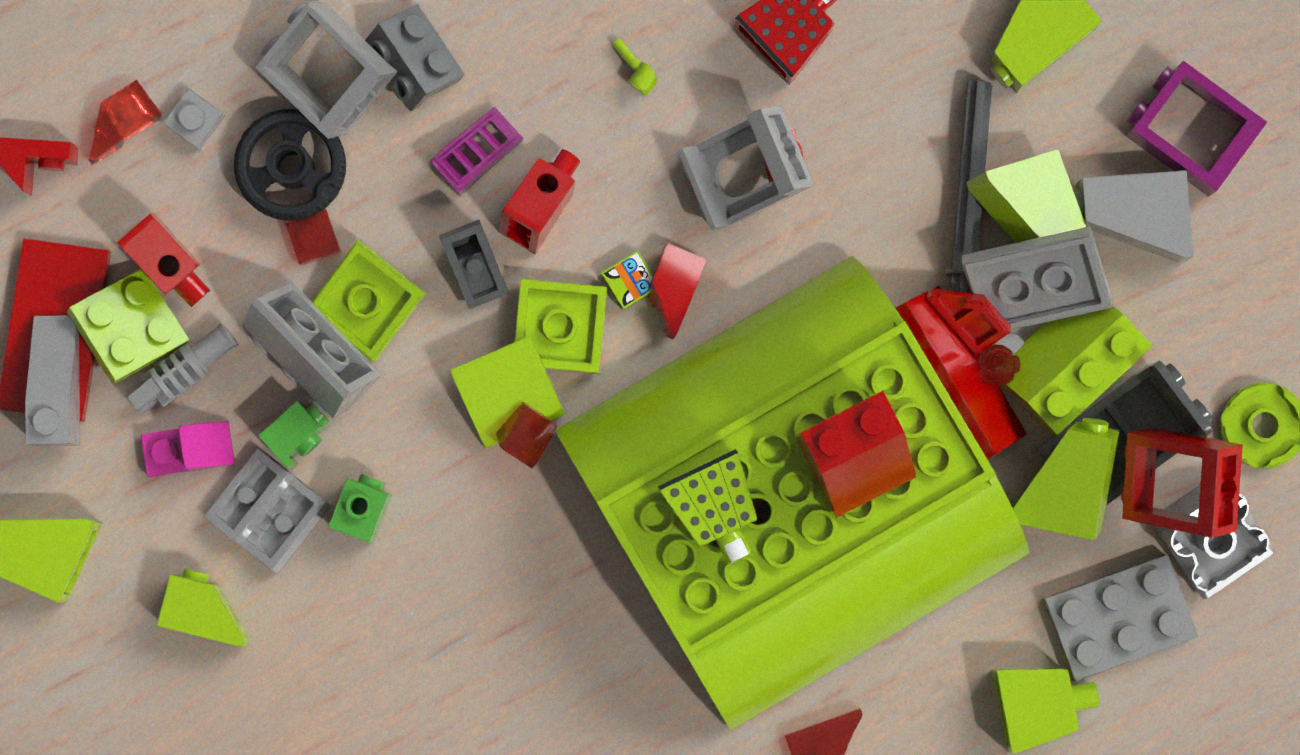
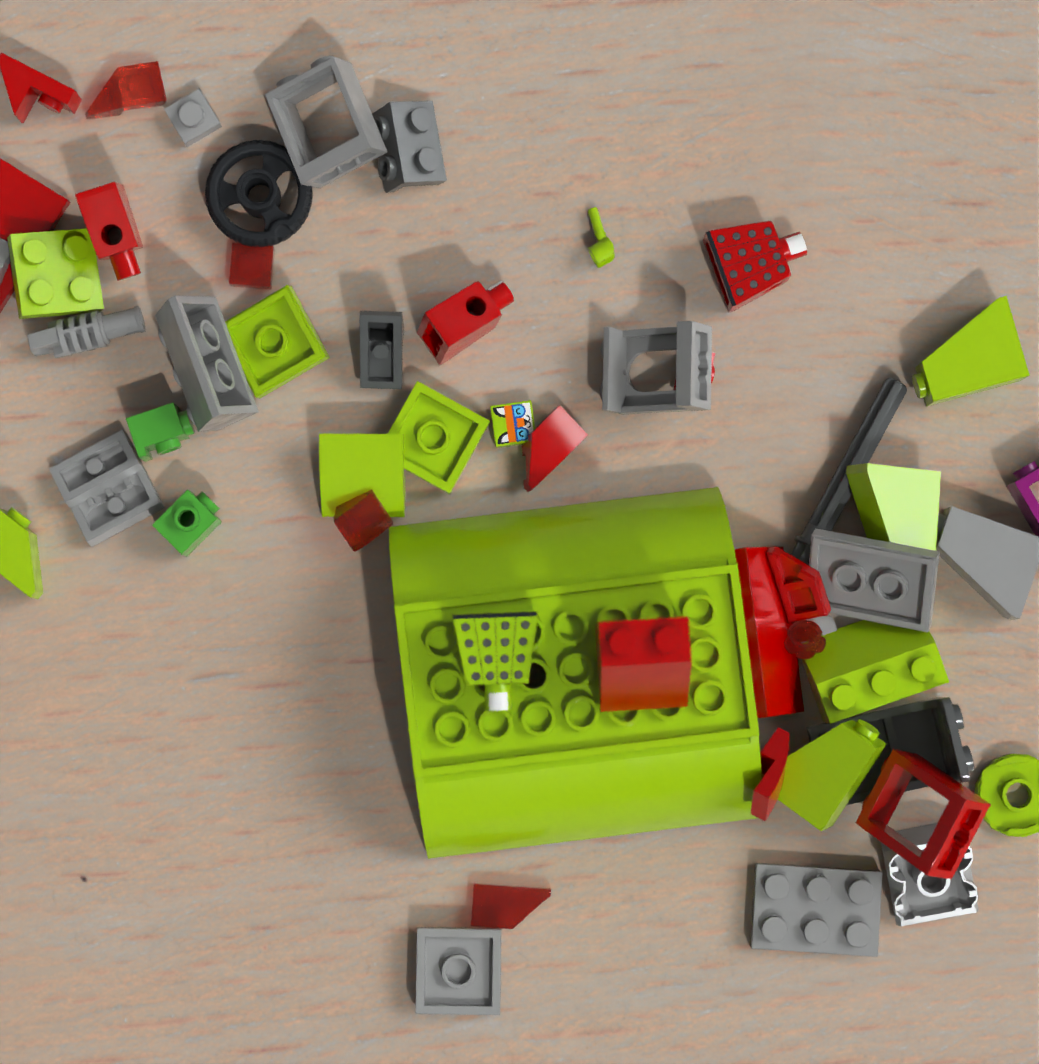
camera: 20 degrees right, 0 degrees up
(188, 449) = (61, 403): dark pink slope -> none
(453, 149) = (424, 237): magenta slope -> none
(1021, 497) = (773, 767): none -> red slope
(1039, 705) = (710, 955): lime torso -> none

